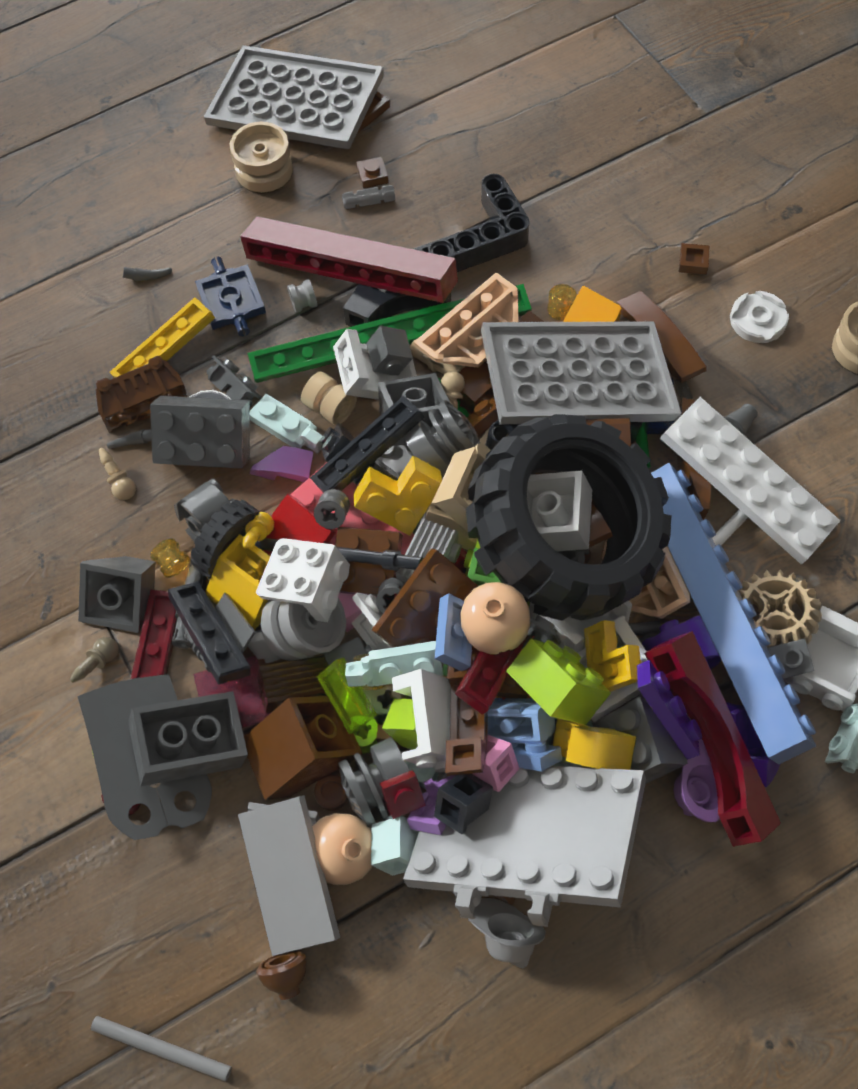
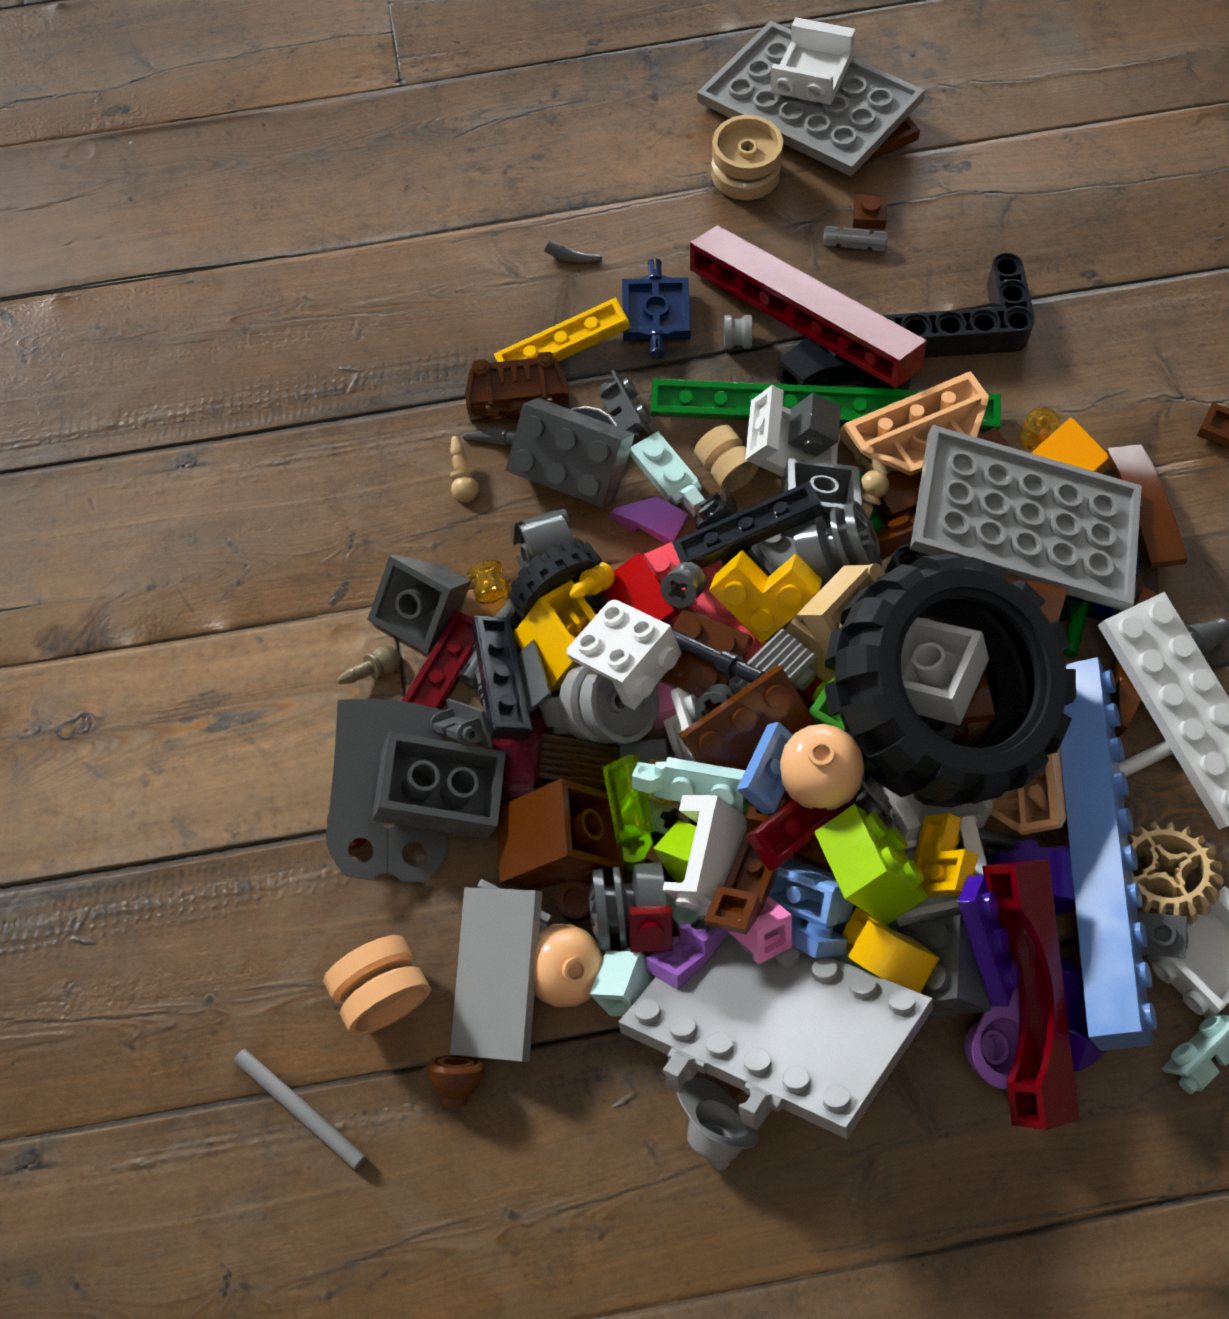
camera: 20 degrees right, 0 degrees up
(189, 680) = (462, 723): none -> dark grey hinge
(192, 921) = (376, 984): none -> light nougat wheel
(289, 67) = (814, 61): none -> white panel
(462, 801) = (713, 959): black brick -> none

